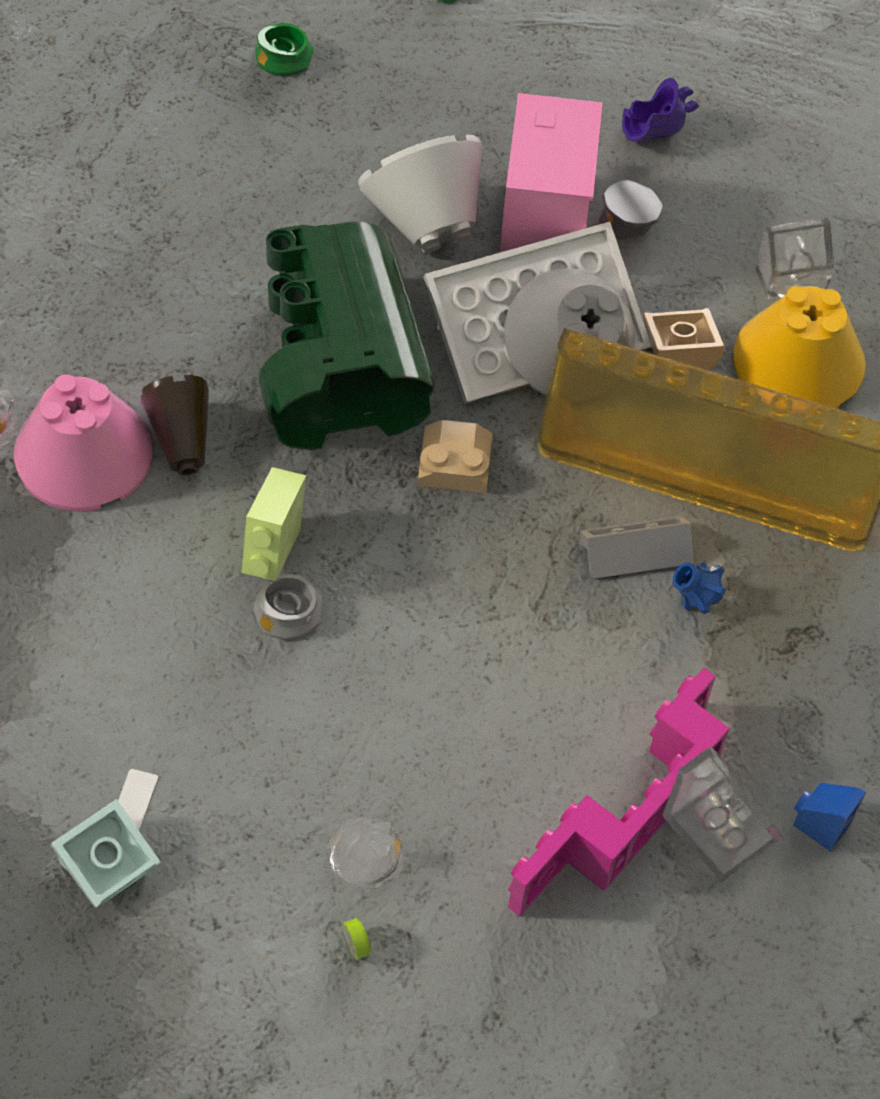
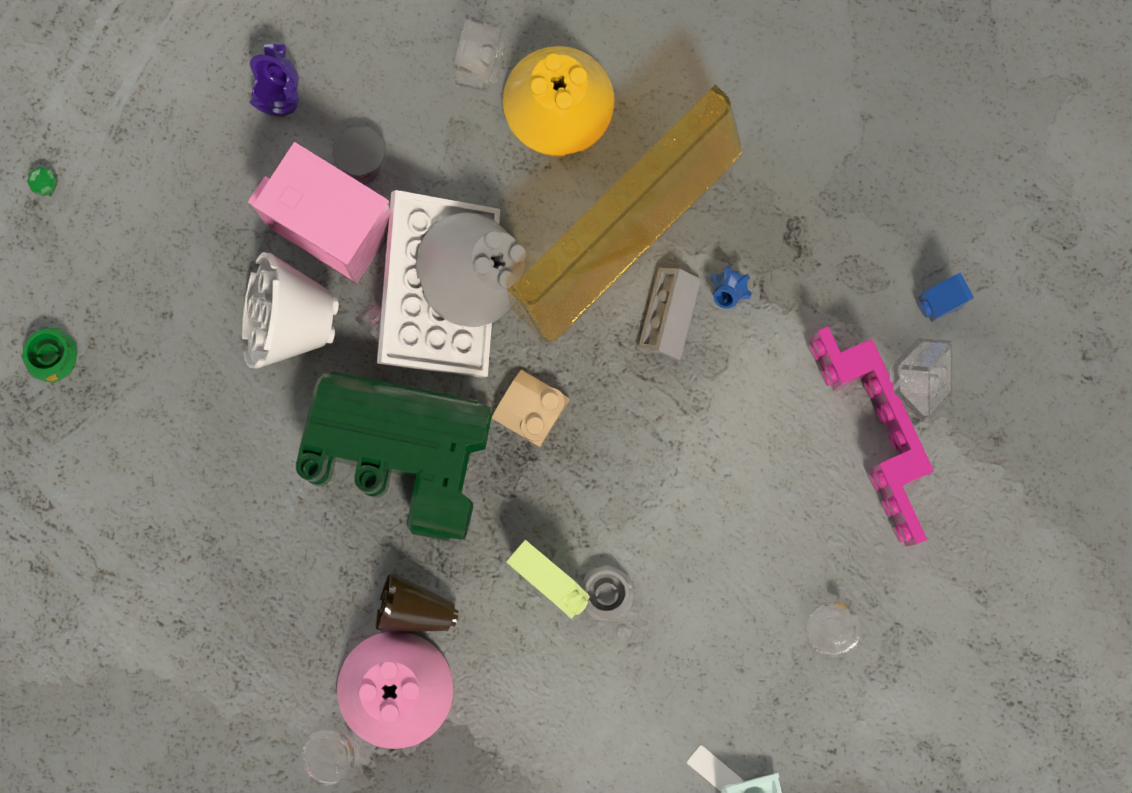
camera: 65 degrees left, 25 degrees up
(357, 938) = (891, 662): lime tile -> none
(685, 337) = (506, 181): tan slope -> none

